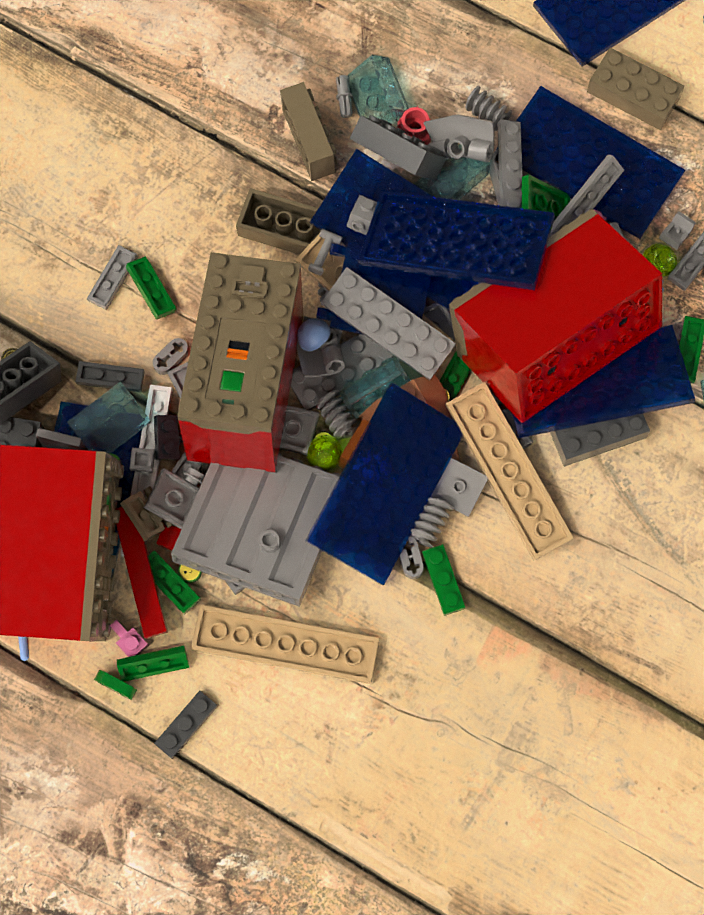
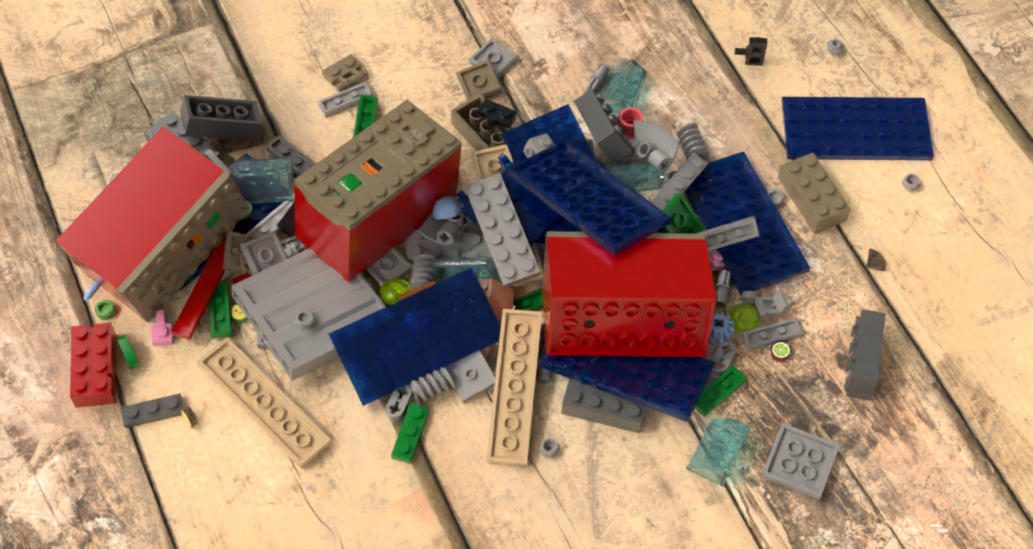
camera: 30 degrees right, 15 degrees down
(54, 657) = (105, 309): none -> bright green tile
(83, 247) = (343, 69): none -> dark tan plate
(93, 721) = (93, 365): none -> red piece
(142, 460) = (266, 220): light grey tile -> none
(152, 663) = (164, 354): green plate -> none
(224, 138) = (498, 55): none -> light grey tile
(228, 707) = (189, 416): none -> clear smoke tile
(231, 172) = (479, 79): none -> dark tan plate
(285, 202) = (496, 114): none -> black plate
(308, 131) = (551, 80): dark tan brick -> none
(330, 238) = (493, 158): light grey piece -> none
(580, 502) = (549, 442): none -> light grey plate
(602, 113) = (776, 196): none -> light grey tile
(651, 237) = (749, 297): none -> light grey plate
(674, 312) = (718, 356): none -> light grey beam

